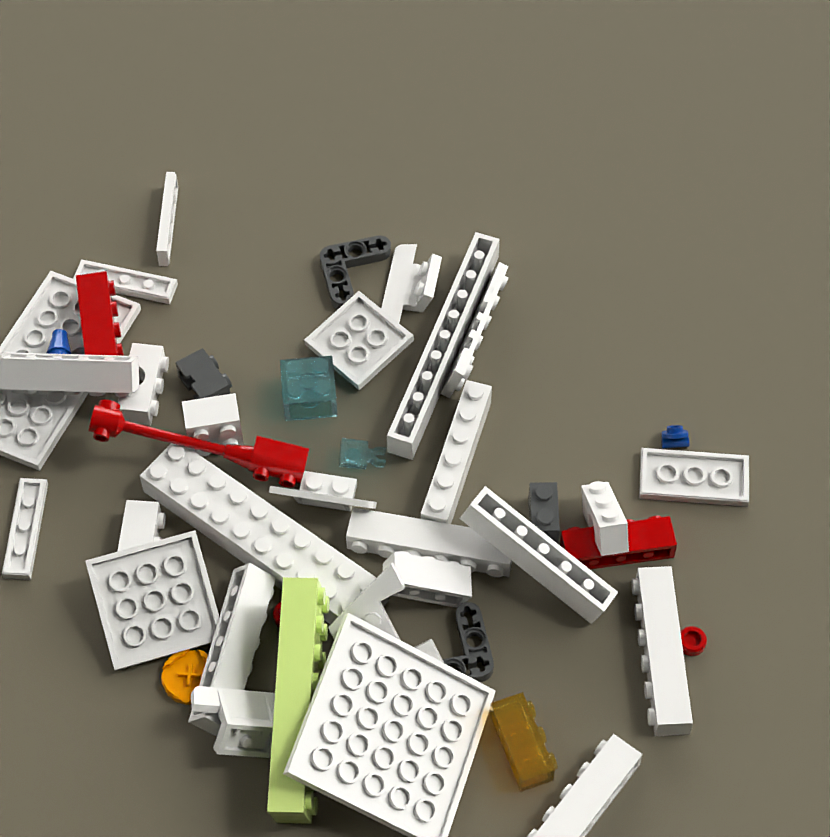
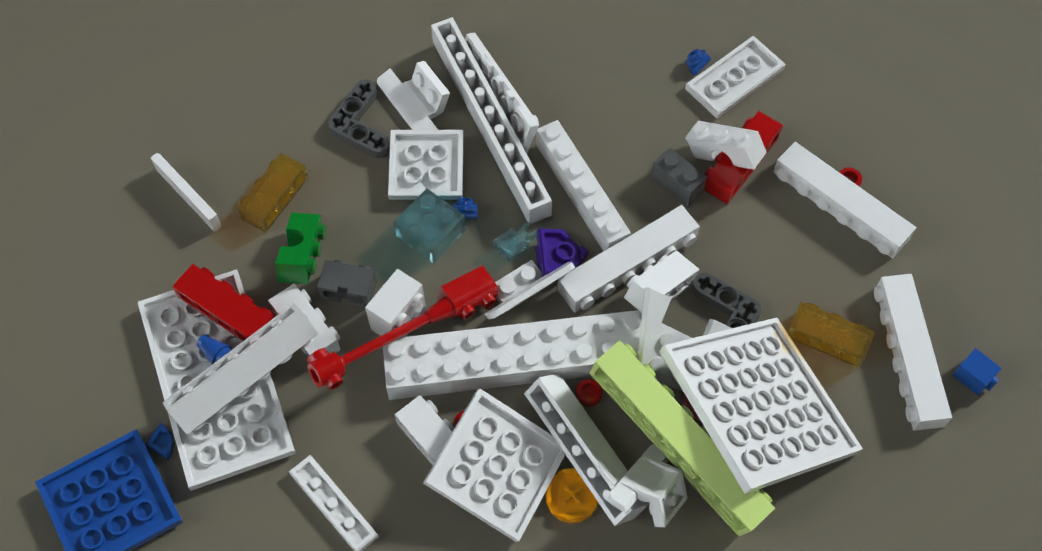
camera: 45 degrees left, 5 degrees up
(133, 282) = (213, 258): white tile -> none
(179, 333) = (298, 259): none -> green arch
(226, 269) = (272, 192): none -> clear yellow brick
(352, 399) = (467, 208): none -> blue plate
(385, 487) = (556, 249): none -> dark purple plate
(538, 555) = (715, 203): white brick -> none

